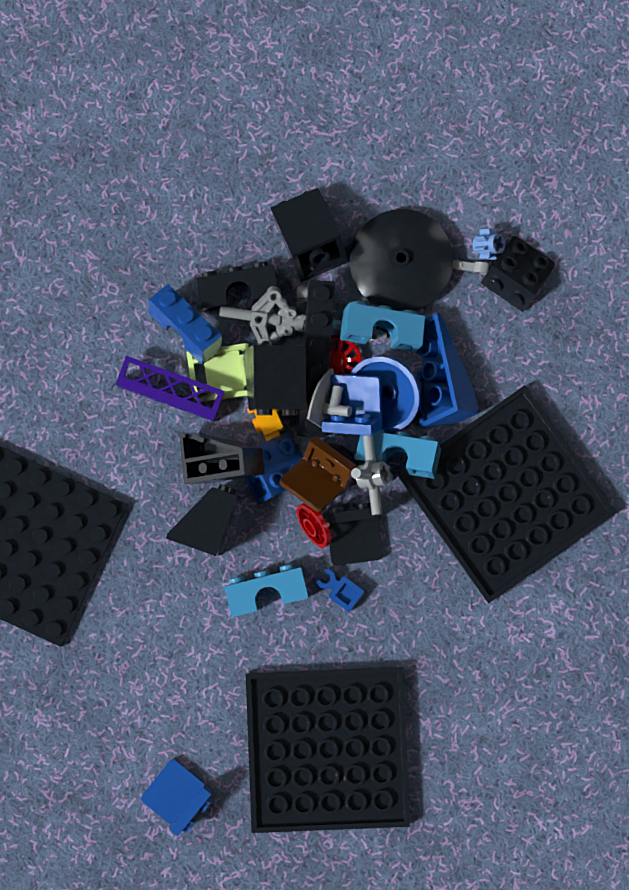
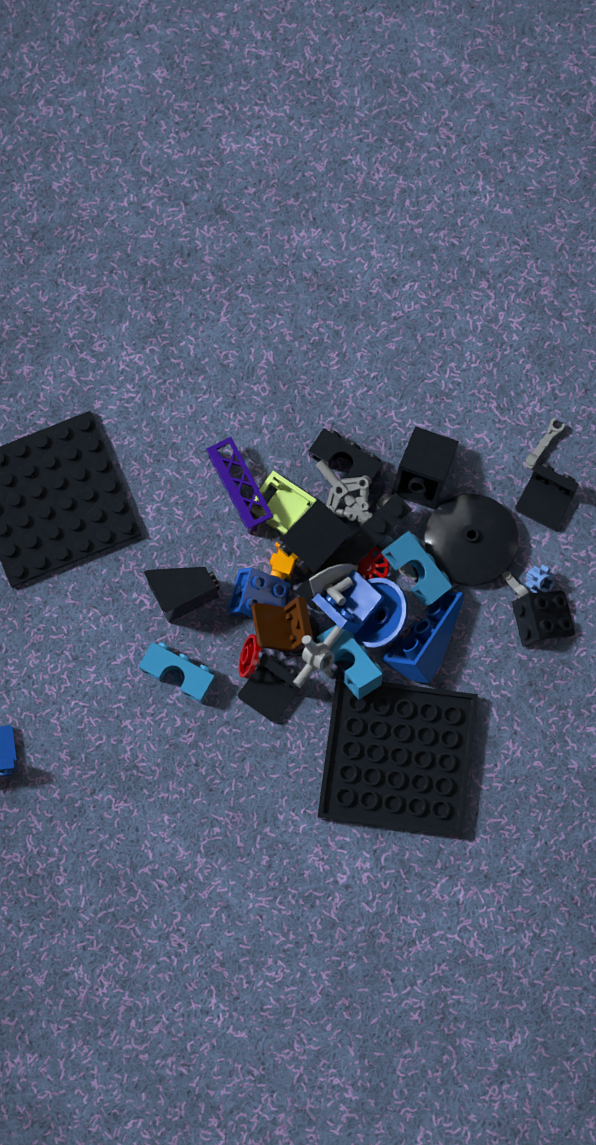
camera: 45 degrees right, 10 degrees down
(198, 335) = (290, 461): blue arch -> none
(217, 459) = (225, 555): black wedge -> none
(327, 750) = (118, 815): black plate -> none
(343, 592) = (227, 720): blue plate -> none
(383, 109) = (543, 444): none -> light grey piece
(430, 168) = (547, 496): none -> black bracket

